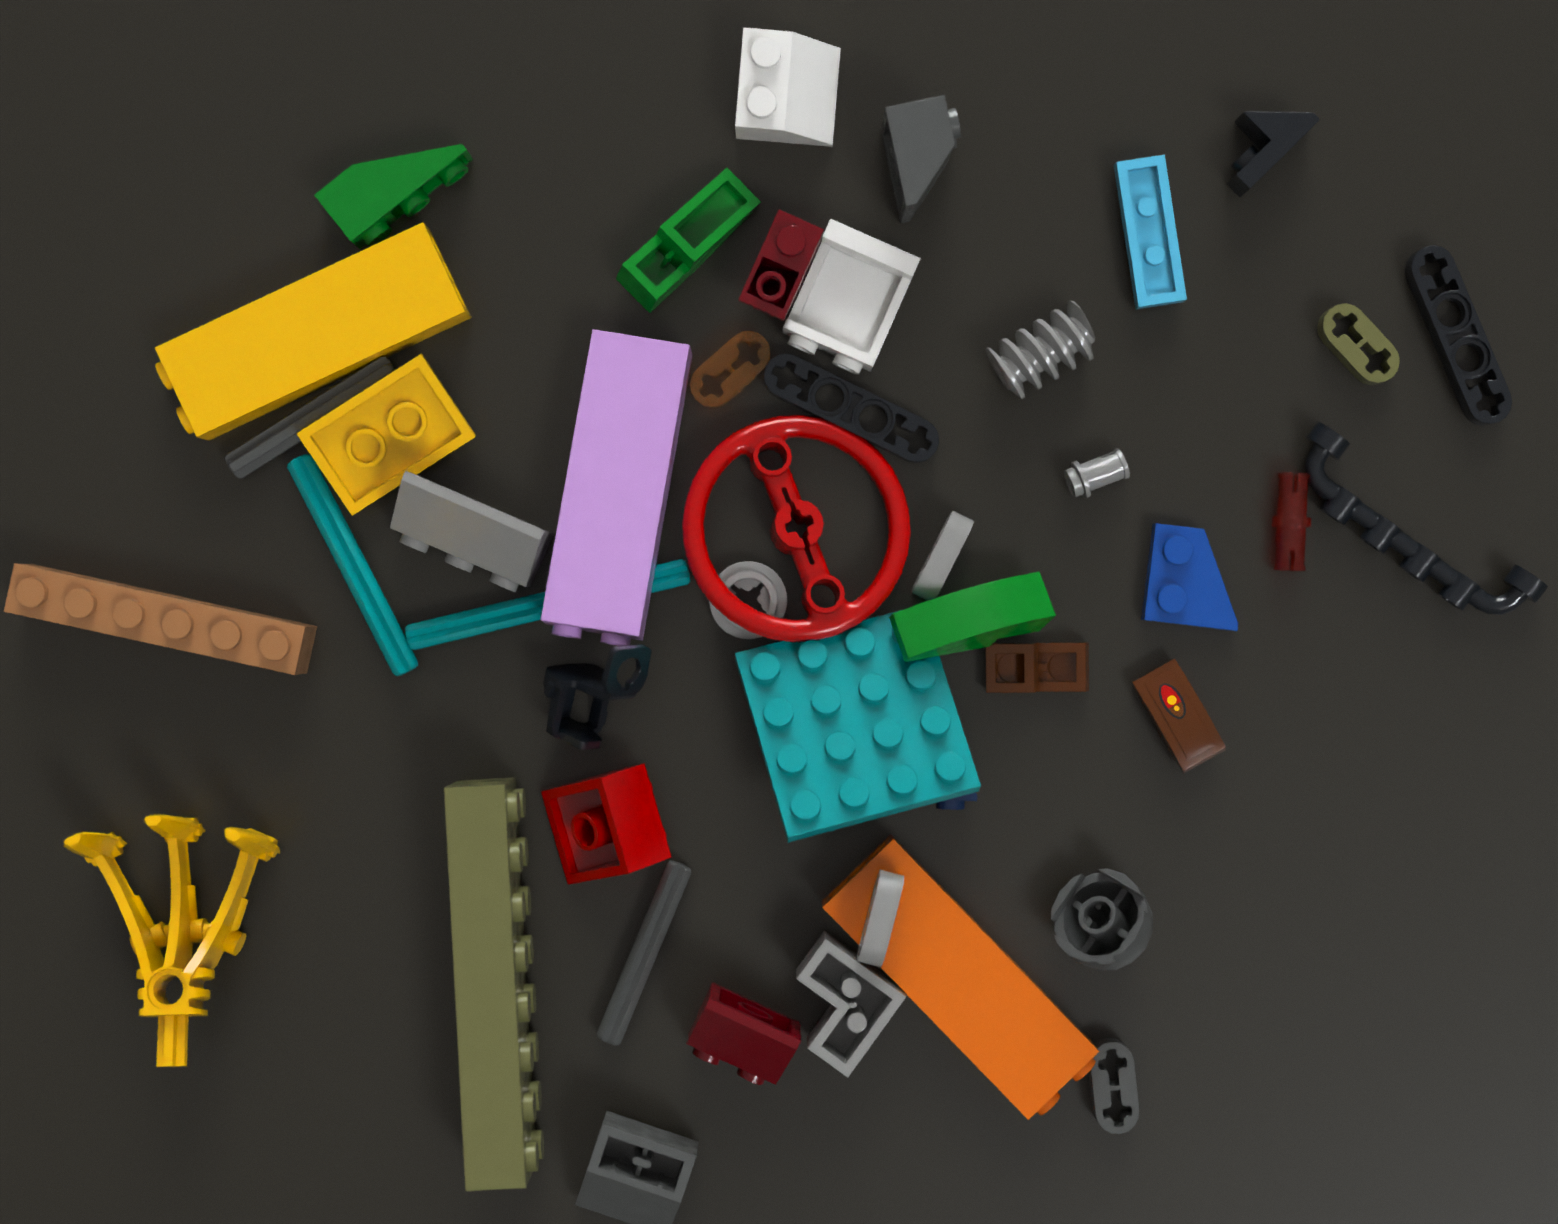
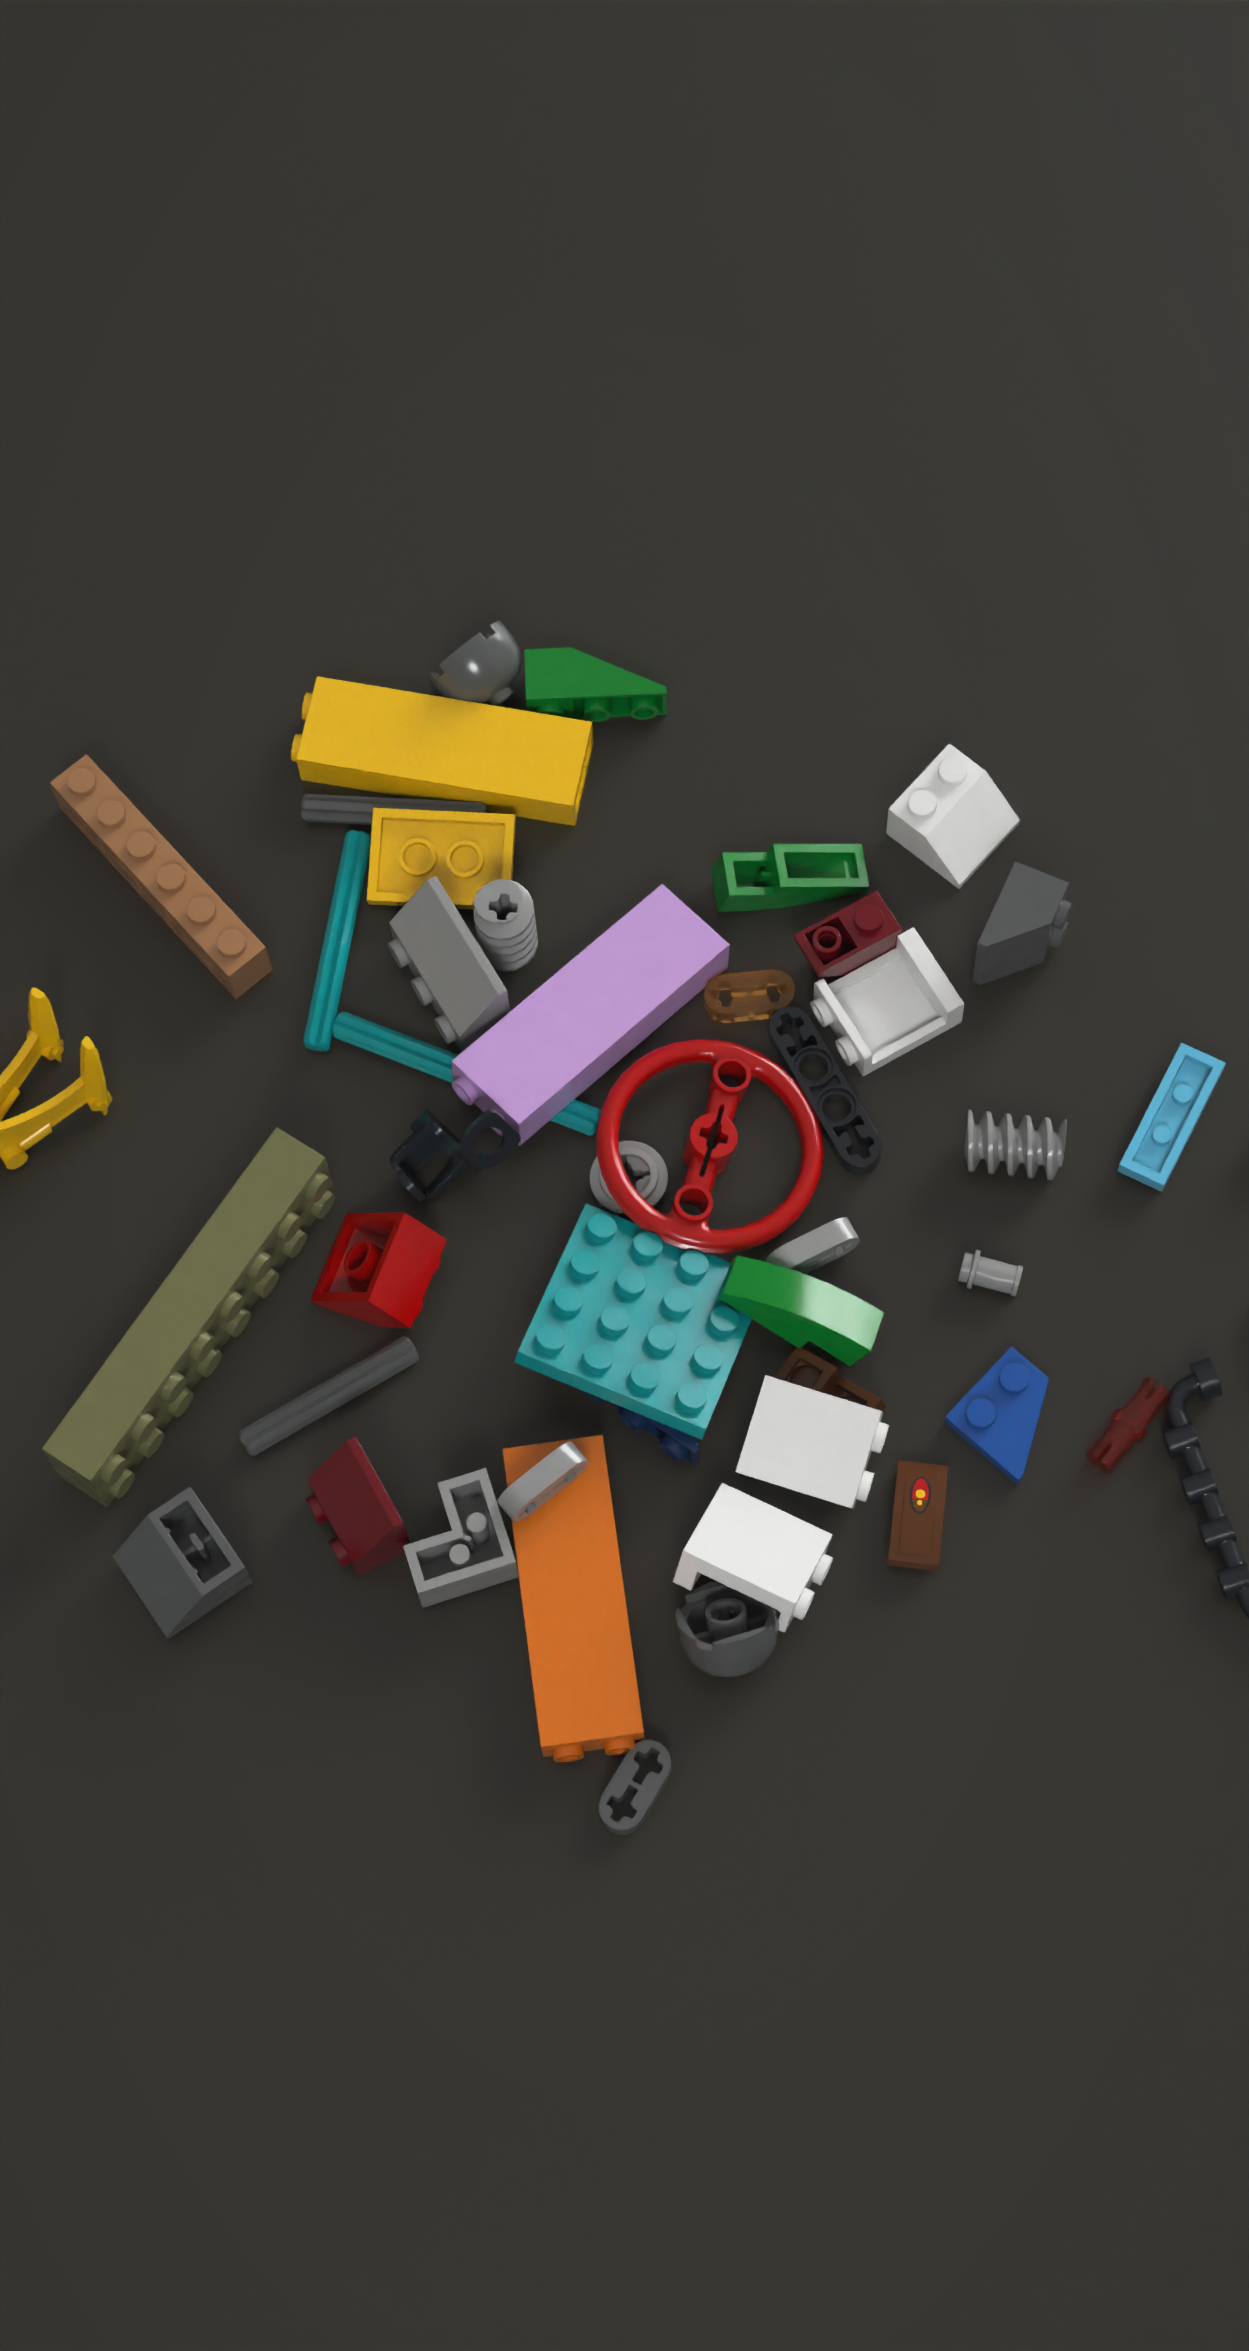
camera: 45 degrees right, 20 degrees down
(289, 238) = (481, 669): none -> dark grey cylinder
(471, 457) = (505, 924): none -> light grey piece
(1060, 725) = (812, 1442): none -> white panel
(1084, 847) = (757, 1553): none -> white panel

